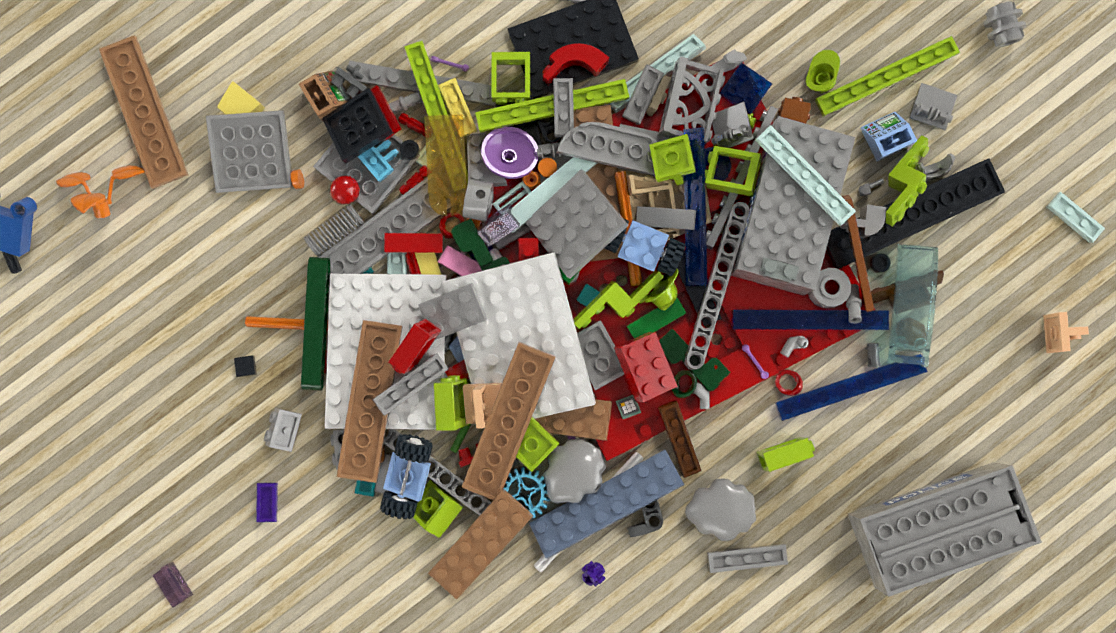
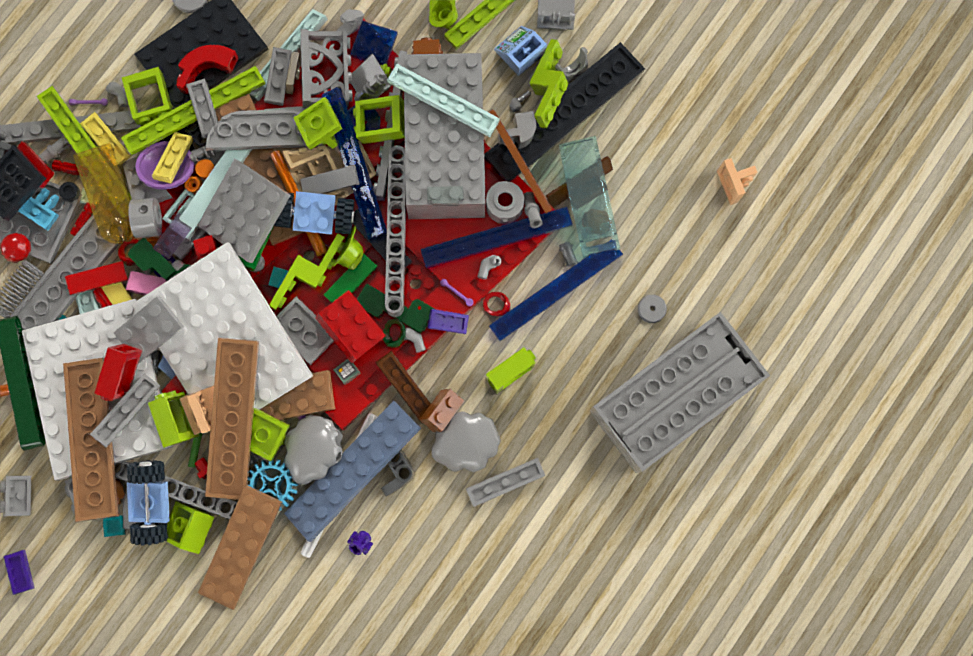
camera: 20 degrees left, 5 degrees down
(483, 63) = (119, 91): none -> light grey arm
(519, 147) = (172, 157): none -> light yellow tile
(707, 472) = (441, 410): none -> brick
(739, 388) = (448, 321): none -> dark purple plate
(880, 263) = (549, 168): black tile -> none
(946, 432) = (652, 301): none -> light grey piece
(1075, 217) = (718, 73): light aqua tile -> none

